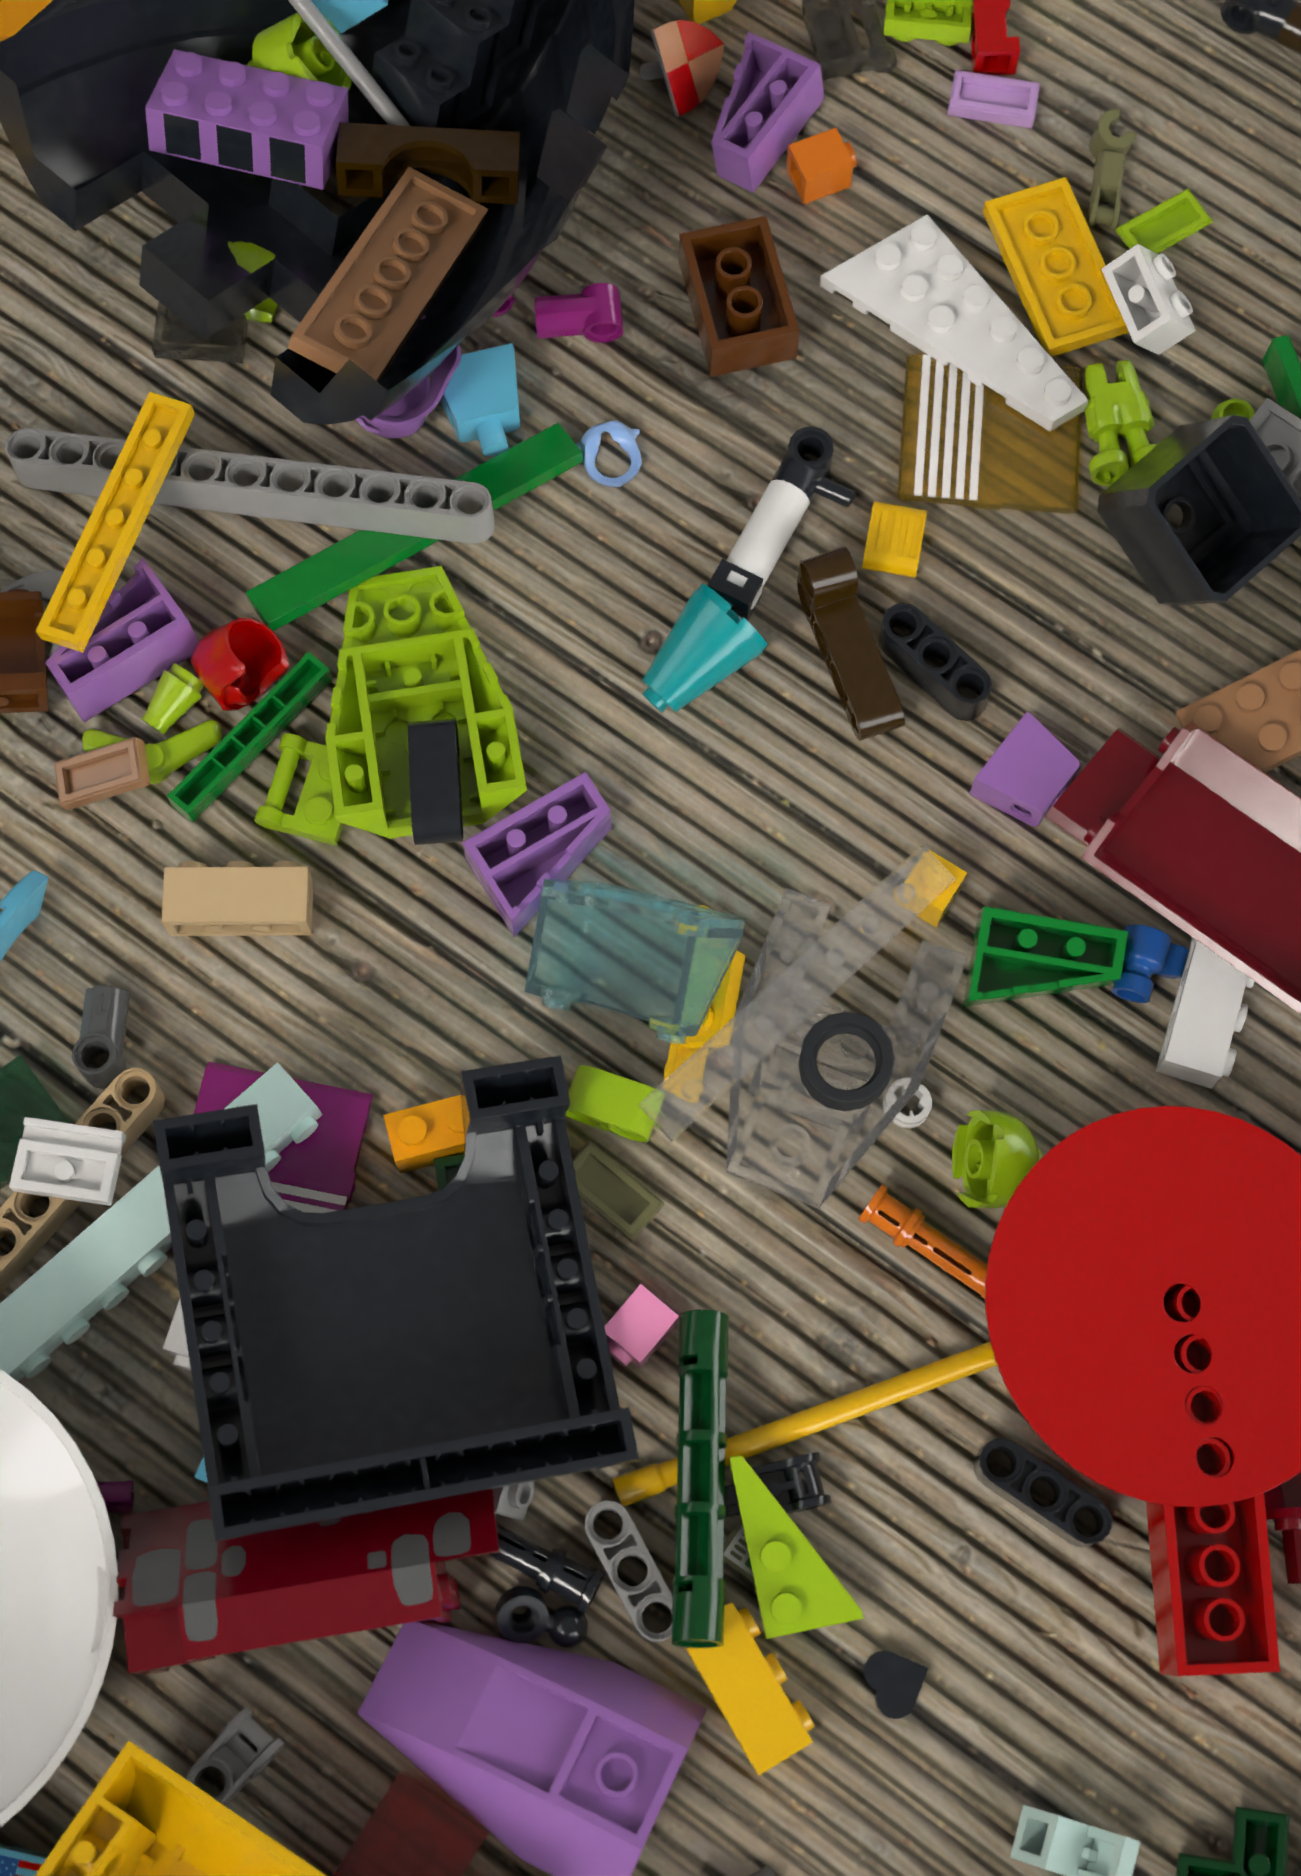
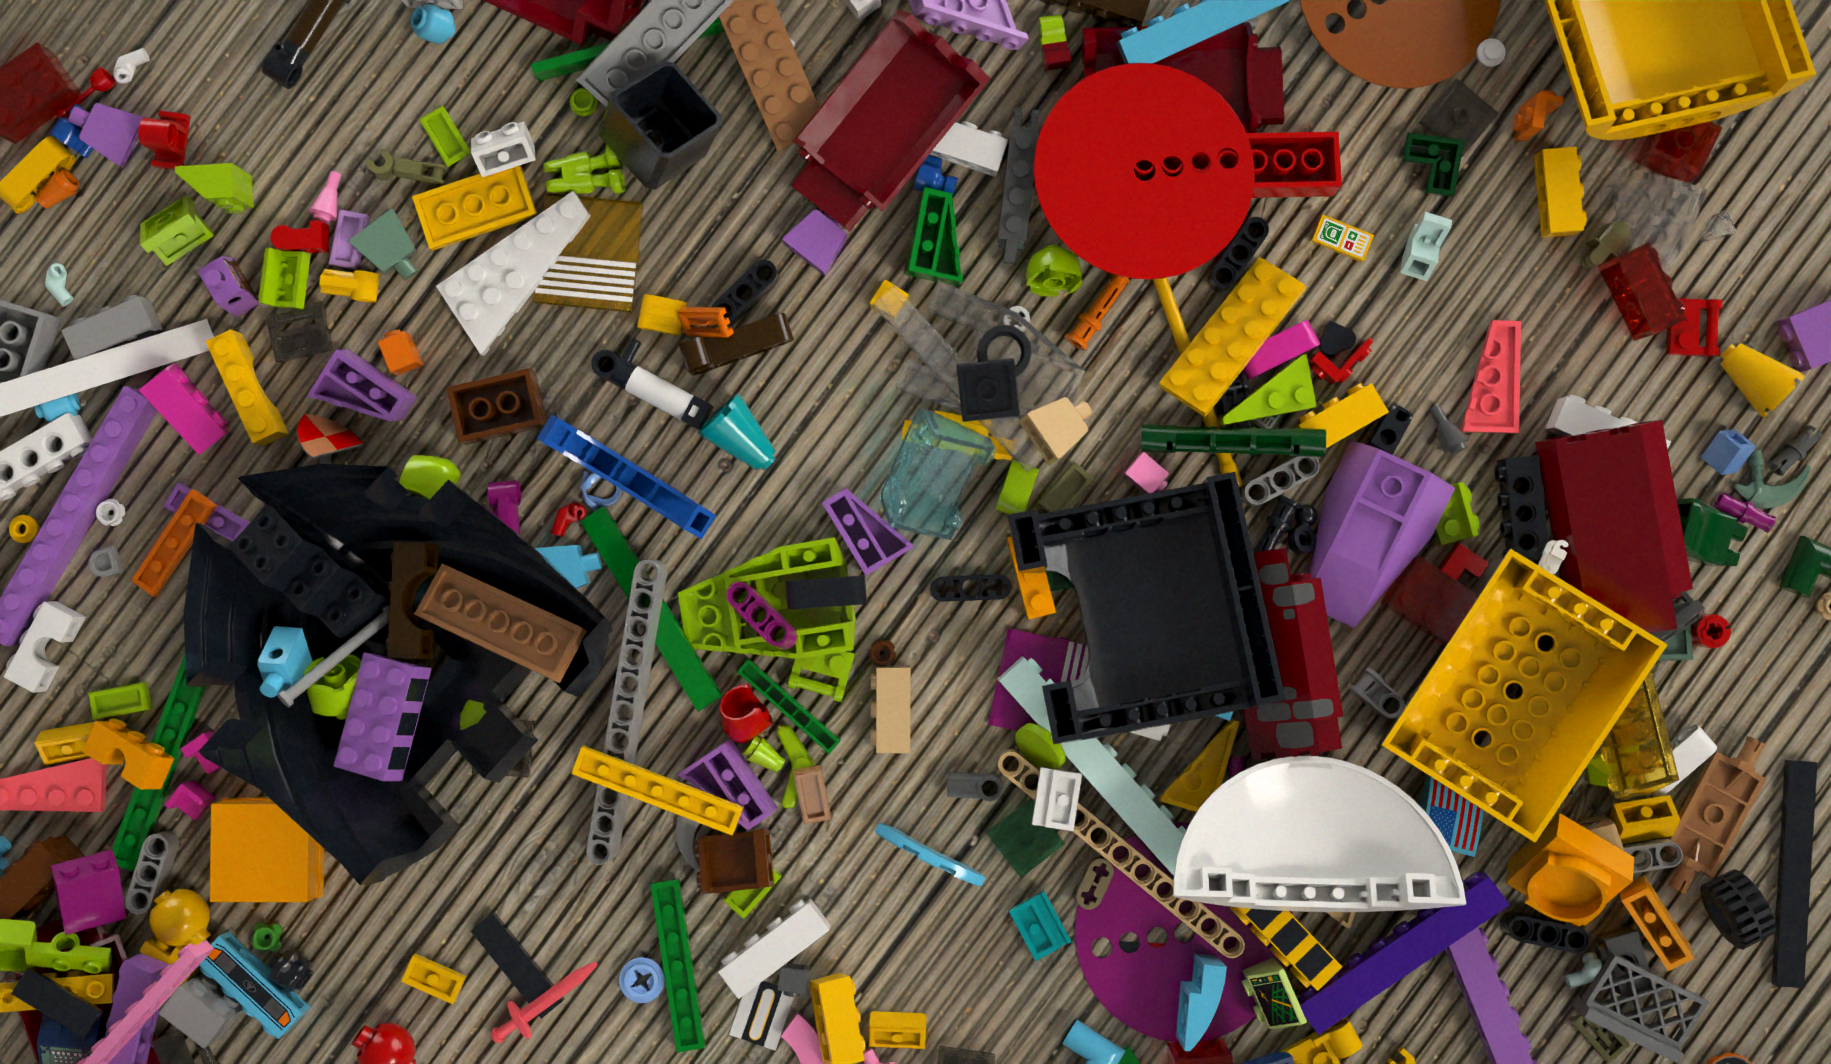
camera: 90 degrees left, 15 degrees up
(107, 1435) = (1204, 773): none -> yellow wing
(141, 1155) = (1038, 747): none -> lime tile
(332, 874) = (874, 652): none -> reddish brown plate
(397, 678) = (750, 609): none -> magenta beam
(429, 996) = (963, 597): none -> black beam
(567, 403) = (566, 515): none -> red arm
(622, 497) = (627, 476): none -> blue arch
(624, 203) = (428, 474): none -> lime piece
(717, 1149) = (1056, 427): none -> tan torso
(726, 1783) = (1390, 429): none -> black leg
(779, 1028) = (988, 389): none -> black tile
(838, 1653) = (1324, 369): none -> red bracket
(871, 1568) = (1282, 348): none -> dark pink beam
(891, 592) = (702, 317): none -> orange tile
(892, 1479) = (1232, 336): none -> yellow plate
(923, 105) = (358, 285): none -> yellow piece
(987, 142) = (386, 245): none -> sand green torso
(1047, 64) = (325, 205): none -> bright pink cone
(1082, 1693) = (1342, 238): none -> tile
(1094, 1091) = (1017, 186): none -> dark grey hinge

